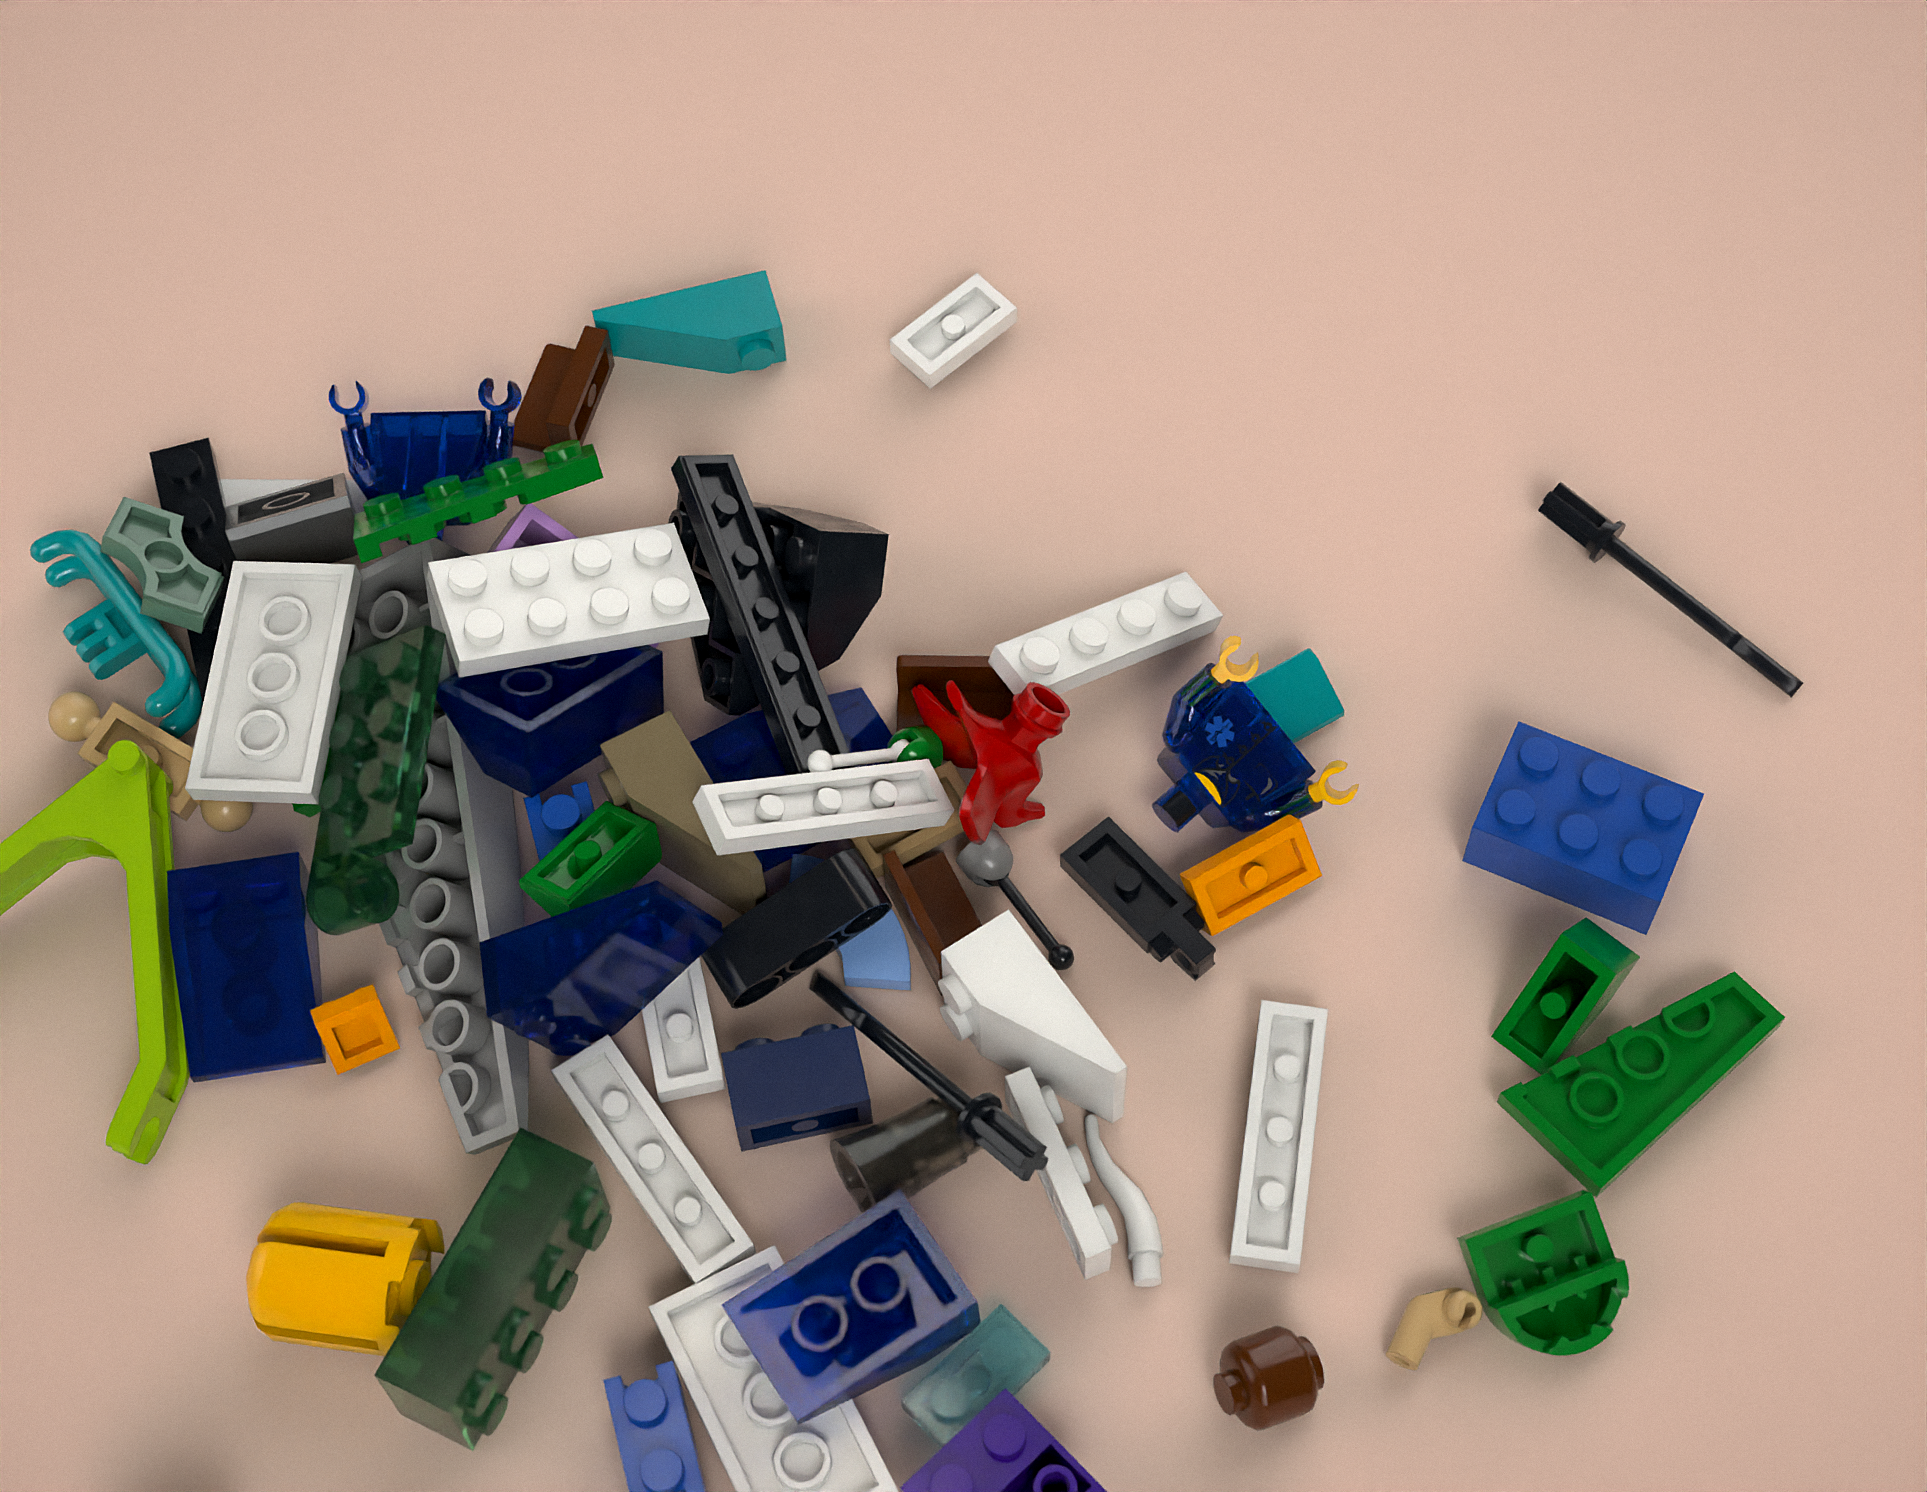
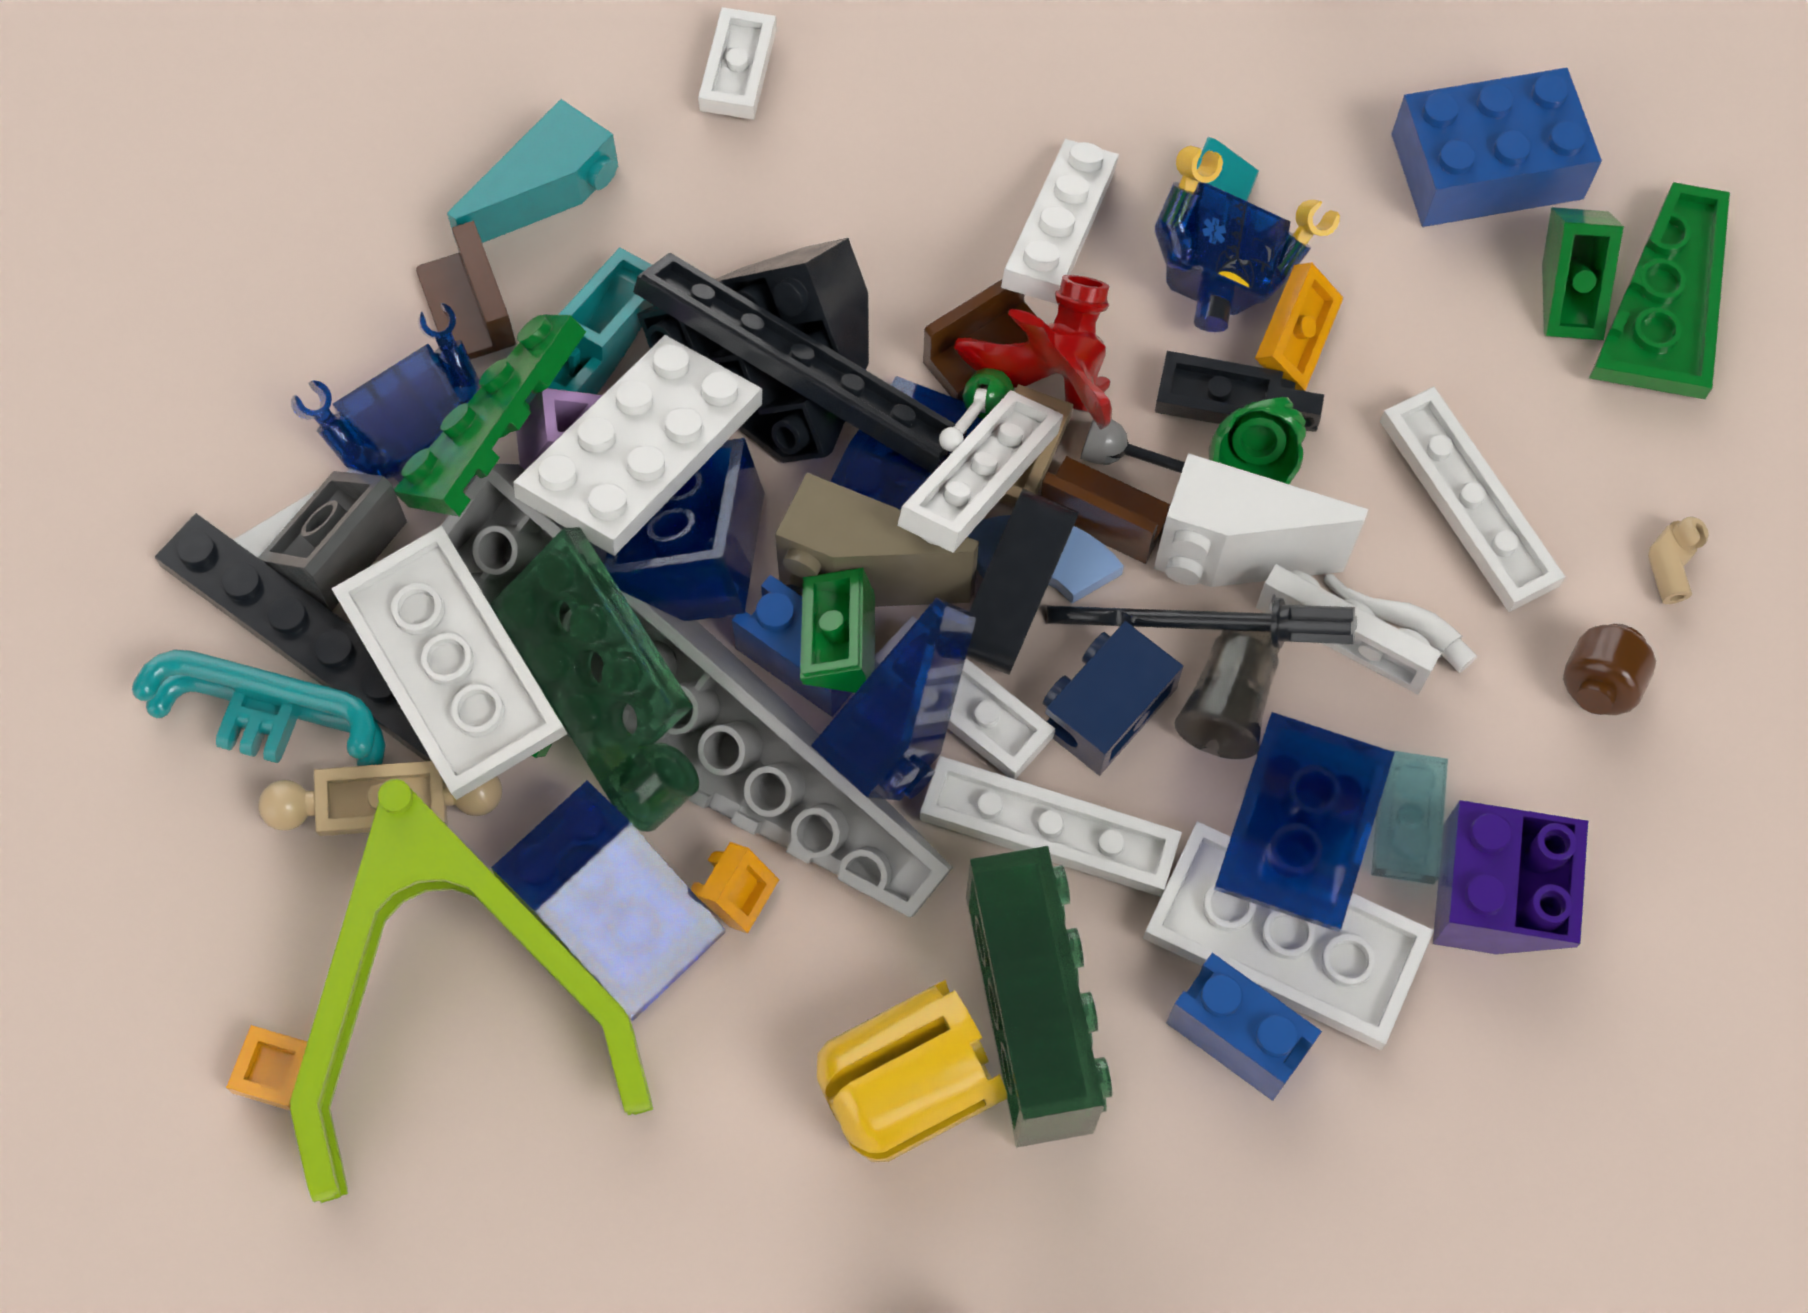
camera: 40 degrees left, 5 degrees up
(172, 579) = (284, 639): sand green tile -> none
(635, 486) = (609, 316): none -> teal slope
(1107, 955) = (1262, 439): none -> green hair
(1549, 1276) = (1725, 470): green slope -> none

